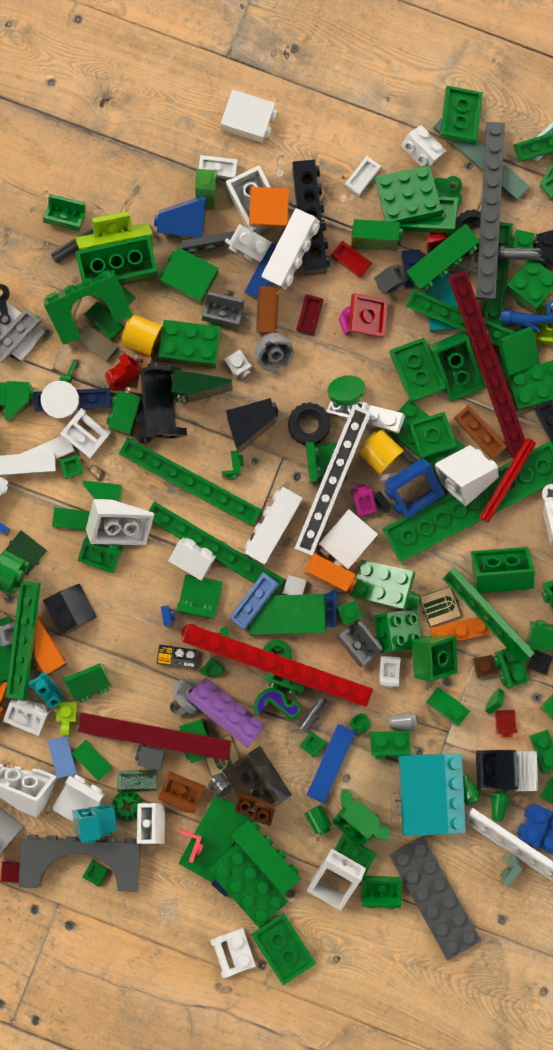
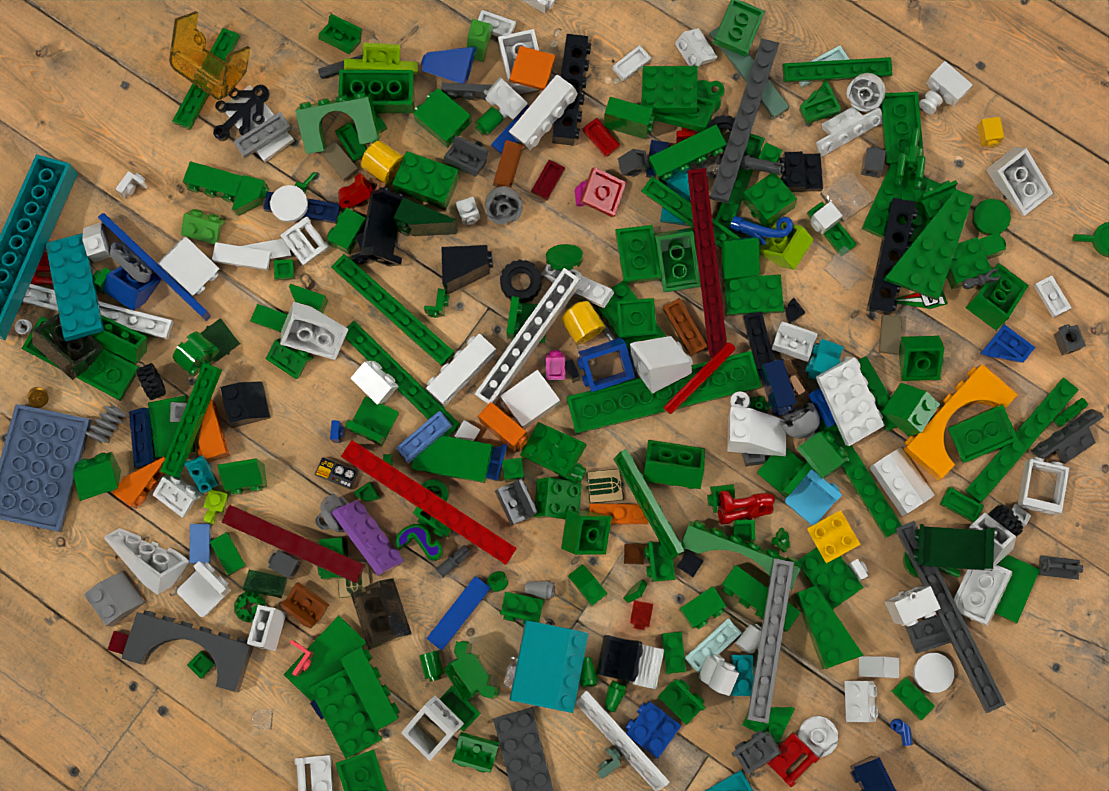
camera: 20 degrees right, 5 degrees down
(94, 822) = (211, 612): teal brick -> none
(220, 785) = (344, 608): dark grey wheel -> none
(236, 269) = (489, 121): none -> green brick
(255, 807) = (372, 637): reddish brown slope -> none
(312, 744) = (445, 590): green tile -> none
(389, 671) = (538, 536): white bracket -> none

